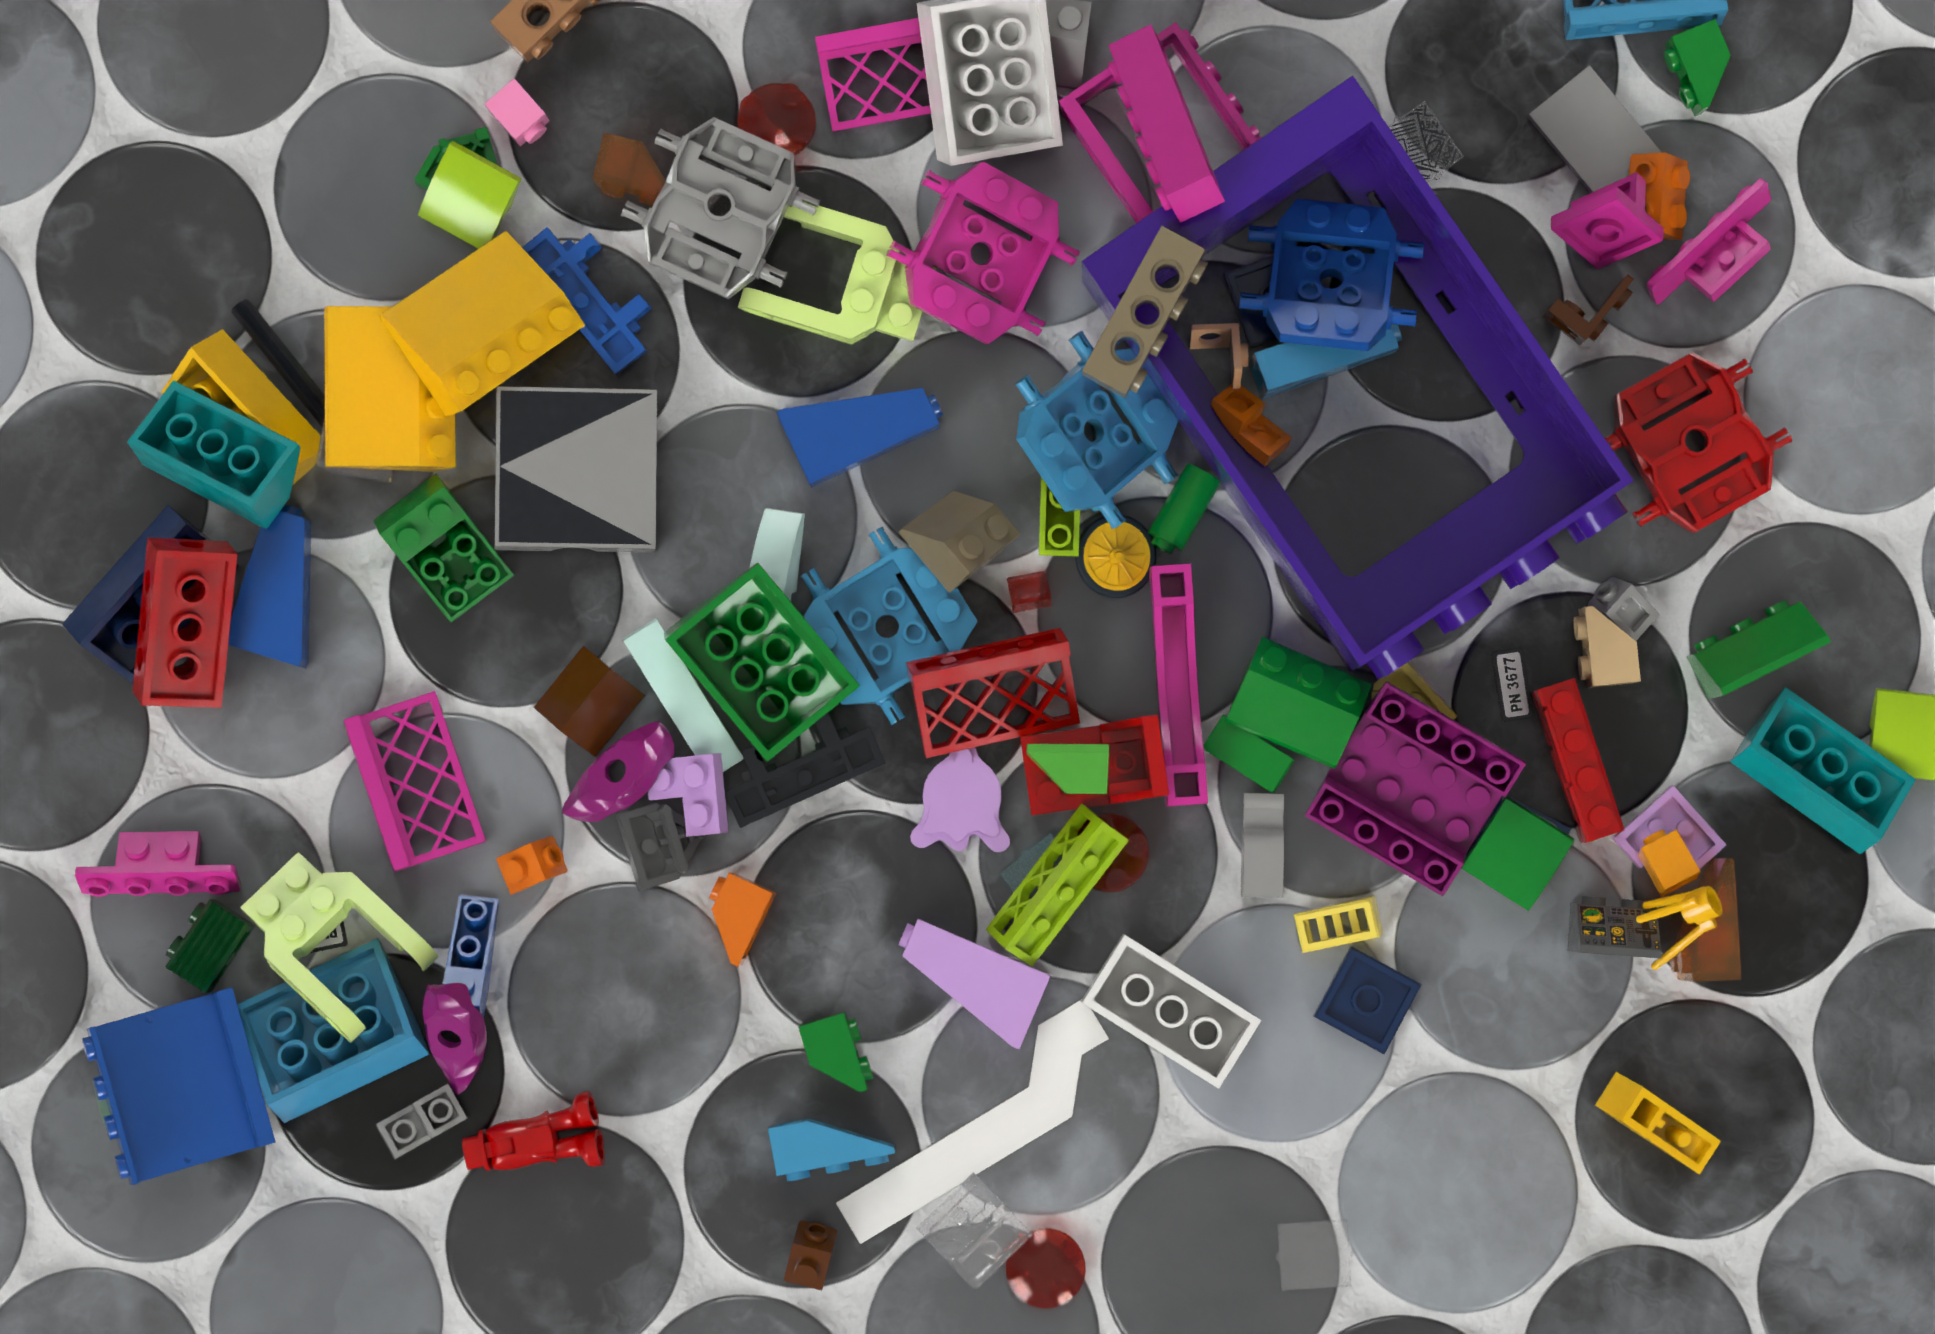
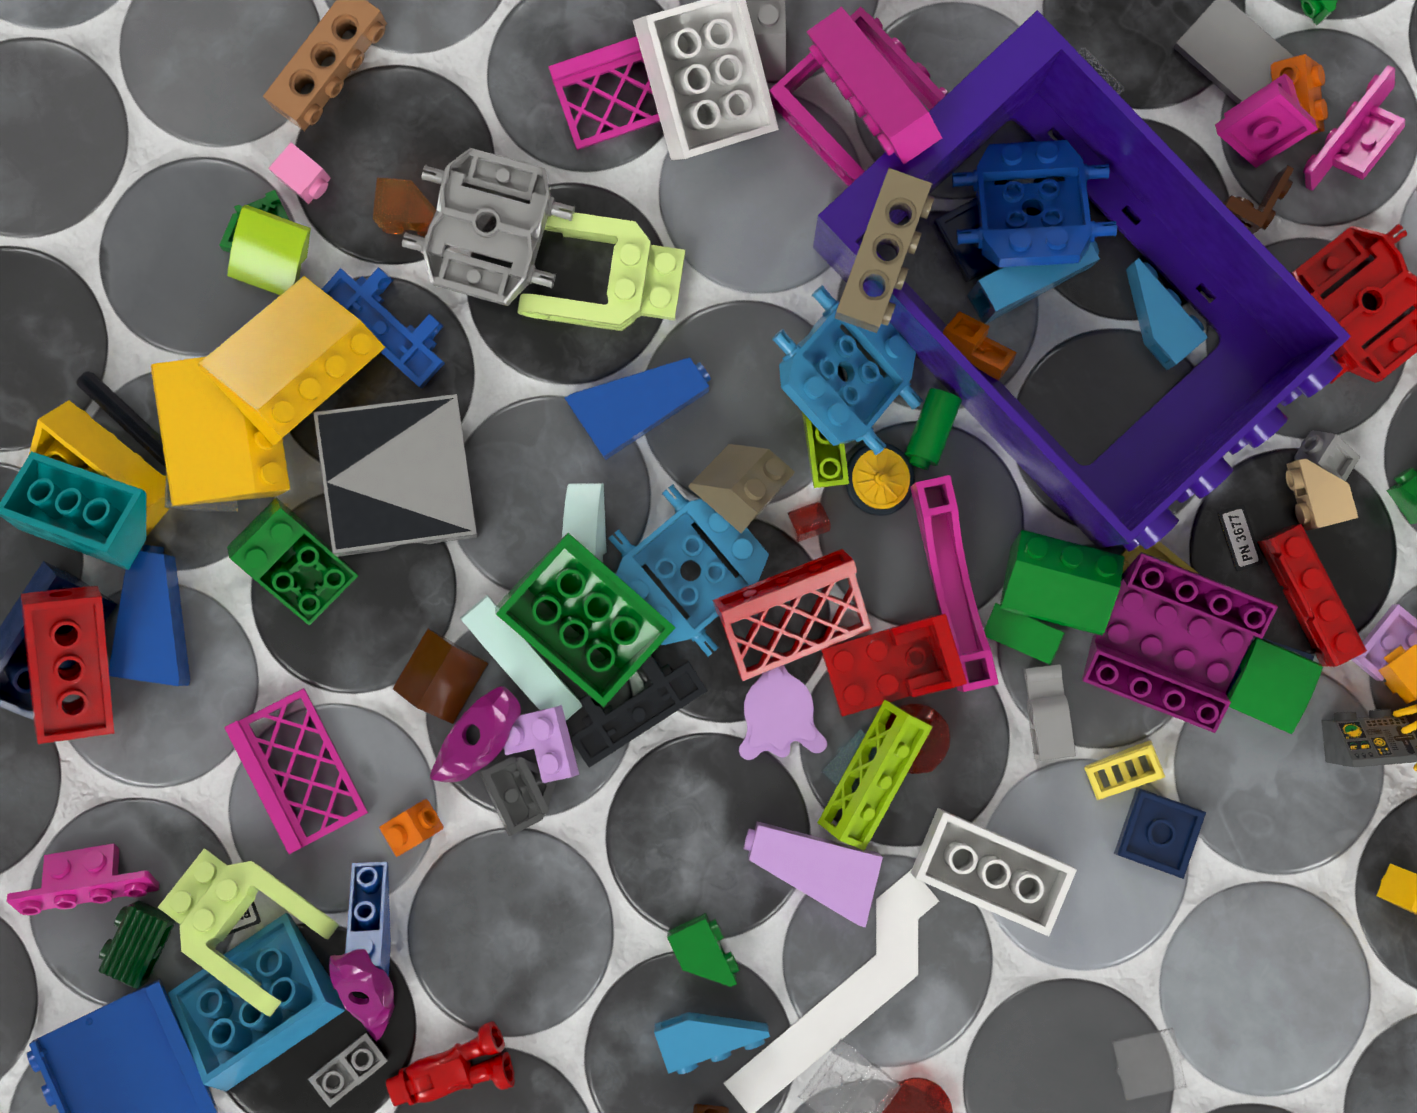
camera: 10 degrees left, 0 degrees up
(739, 913) = (599, 844): orange slope -> none
(779, 116) = (529, 140): clear red dish -> none
(1012, 261) = (750, 235): dark pink piece -> none
(1073, 766) = (876, 670): bright green slope -> none
(1229, 339) = (949, 275): light nougat bracket -> none
(1462, 431) = (1163, 322): none -> dark azure slope

